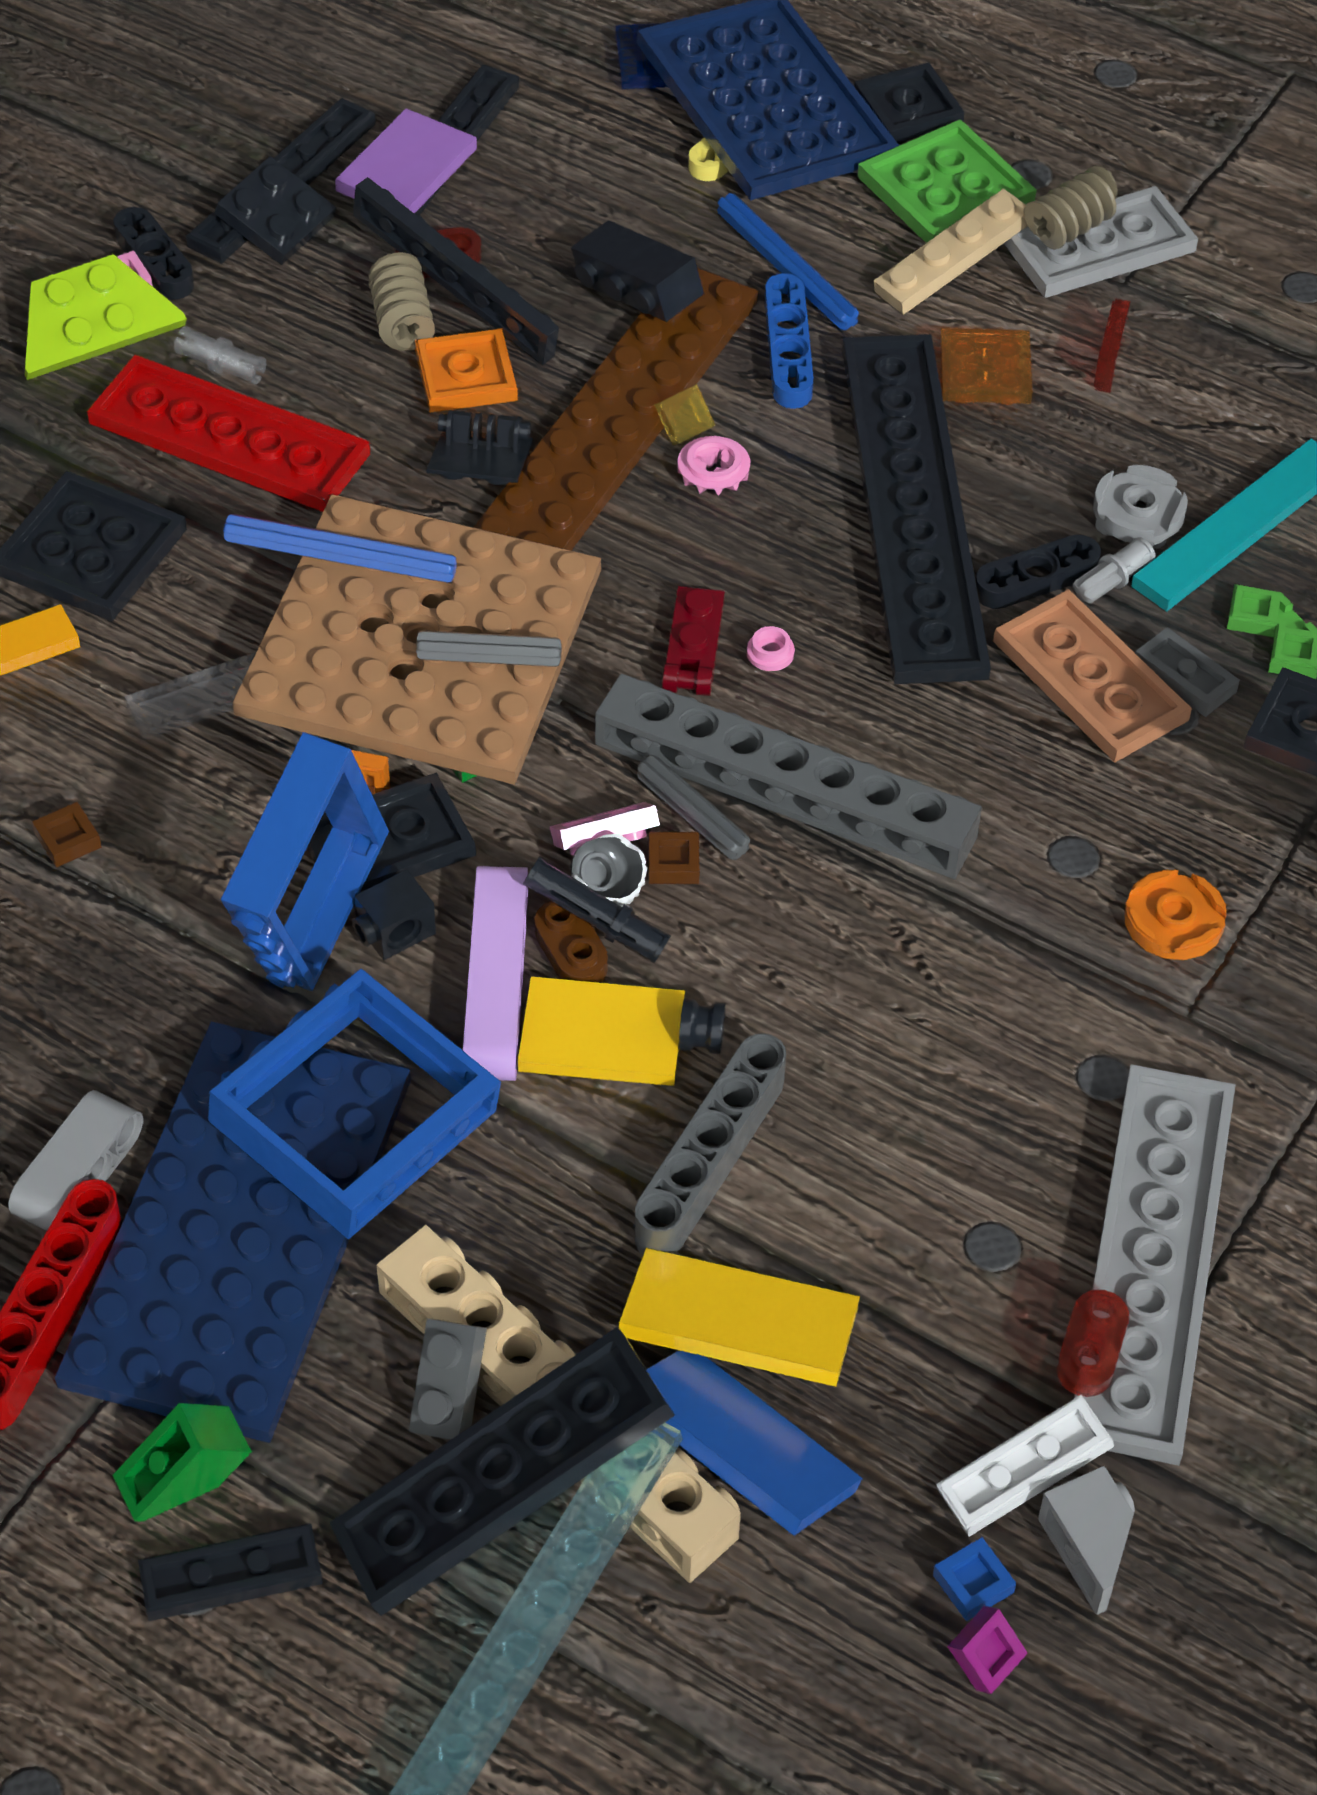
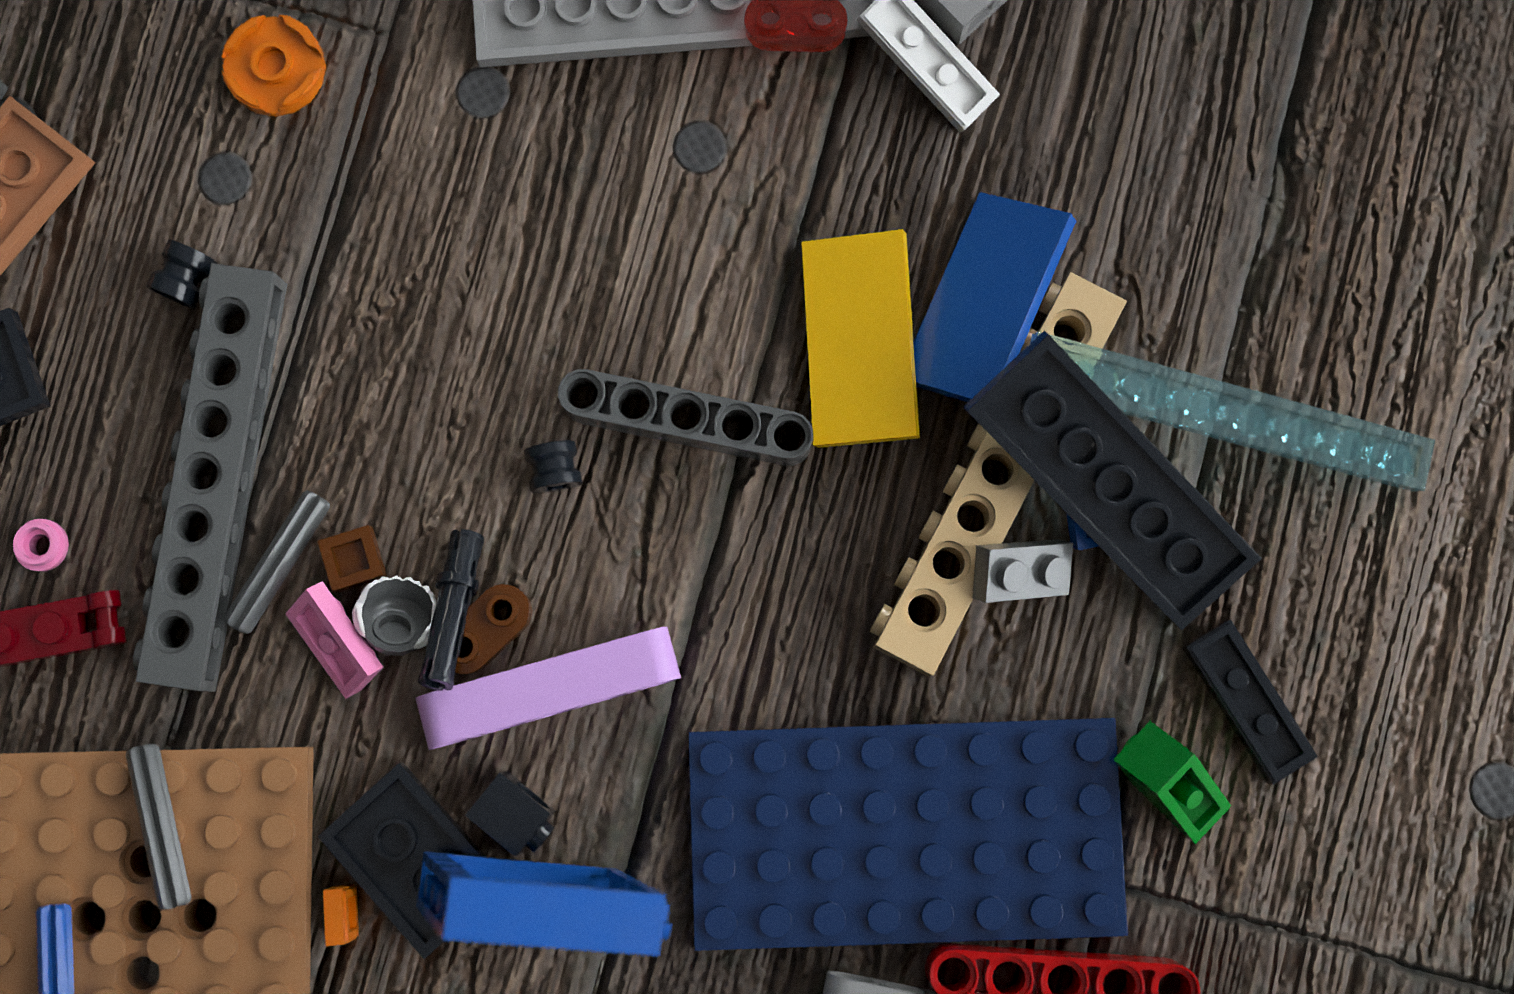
camera: 105 degrees left, 30 degrees up
(363, 997) = (792, 679): blue window -> none
(601, 1031) = (580, 565): yellow tile -> none
(974, 1578) = (1044, 75): blue plate -> none
(980, 788) = (181, 273): none -> black wheel
(987, 1649) = (1107, 49): magenta plate -> none

